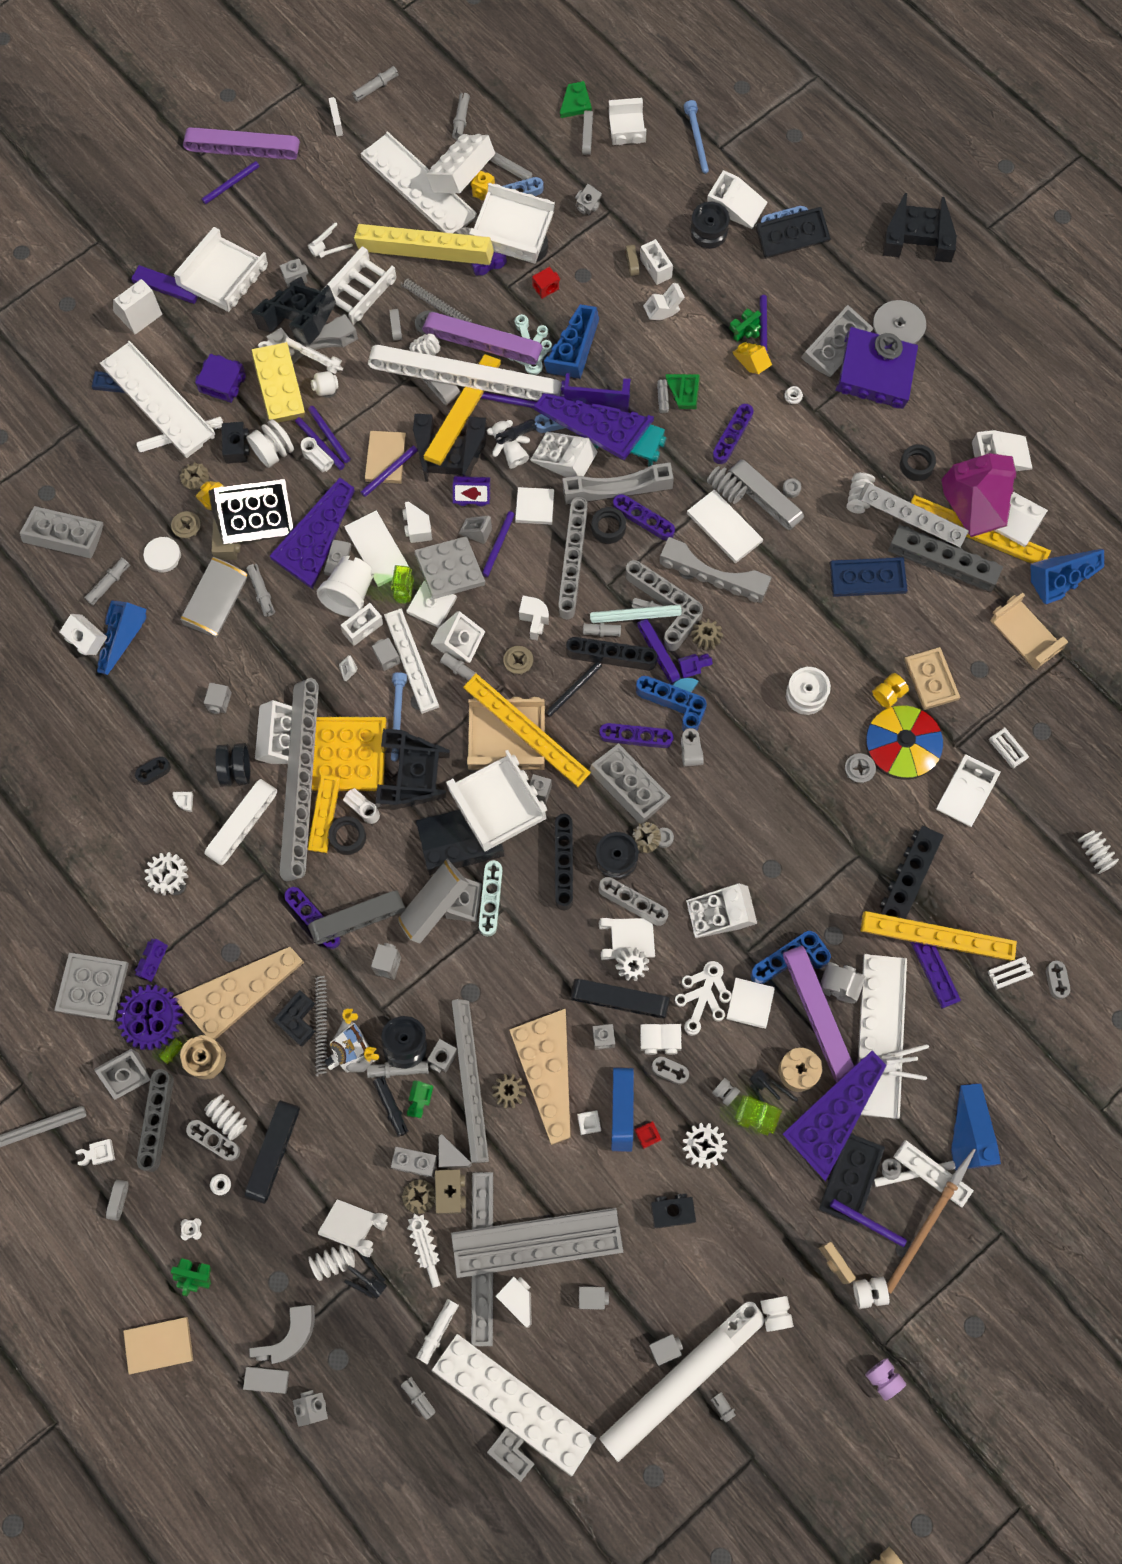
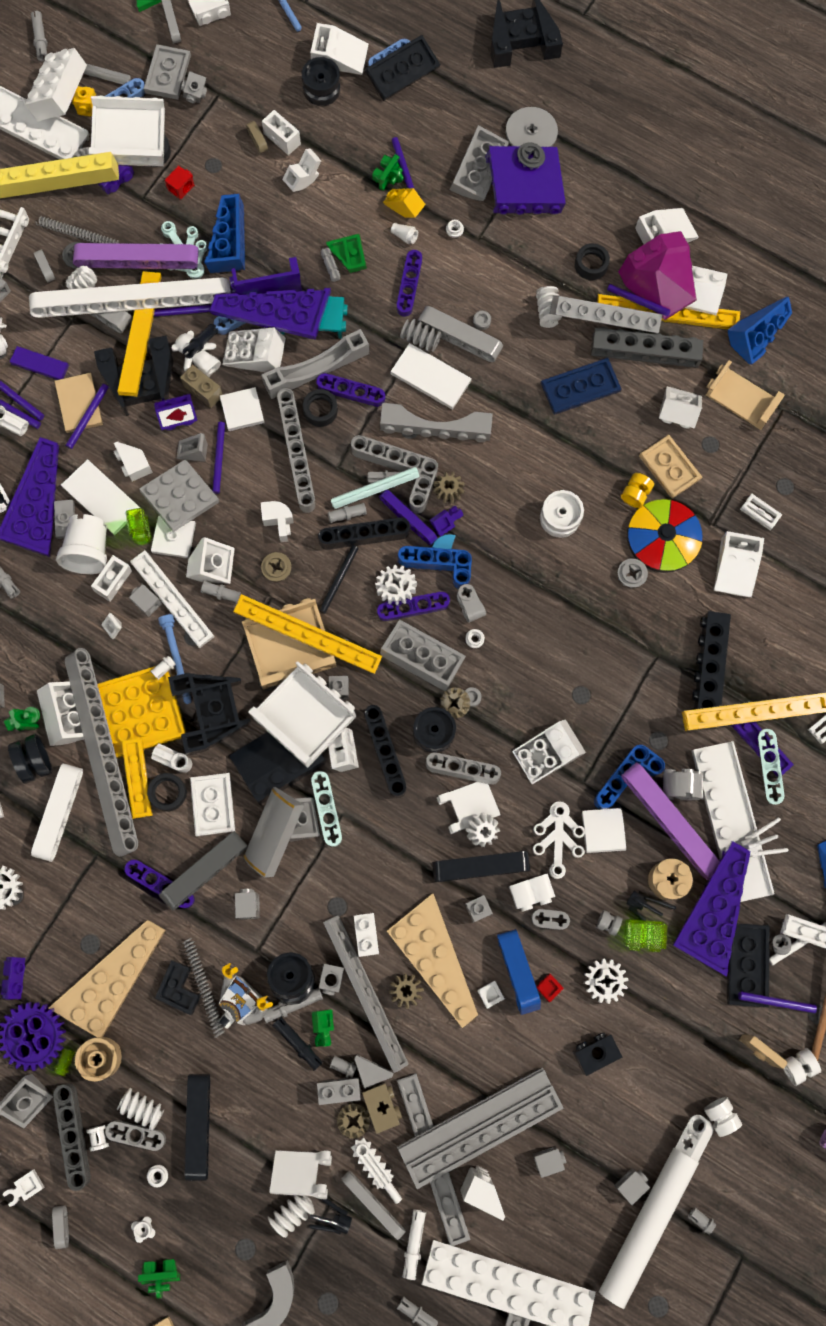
camera: 25 degrees left, 5 degrees up
(173, 1133) = (93, 1139): none -> white bush
(238, 727) = (23, 719): none -> green hips
(361, 411) = (39, 363): none -> dark purple tile
(382, 720) = (163, 667): none -> white pin
(385, 860) = (212, 804): none -> white tile
(411, 1280) = (373, 1205): none -> light grey beam
(426, 1142) = (343, 1066): none -> light grey pin
(488, 1026) = (366, 935): none -> white brick
(503, 473) = (201, 386): none -> dark tan brick
(523, 849) = (343, 752): none -> white brick
(568, 178) = (167, 72): none -> light grey plate
(625, 710) = (401, 579): none -> white gear
(685, 778) = (475, 632): none -> white plate
(744, 386) = (405, 233): none -> white cone
(933, 993) = (771, 766): none -> light aqua beam
(951, 511) = (639, 300): none -> dark purple bar
(959, 624) = (680, 407): none -> white slope

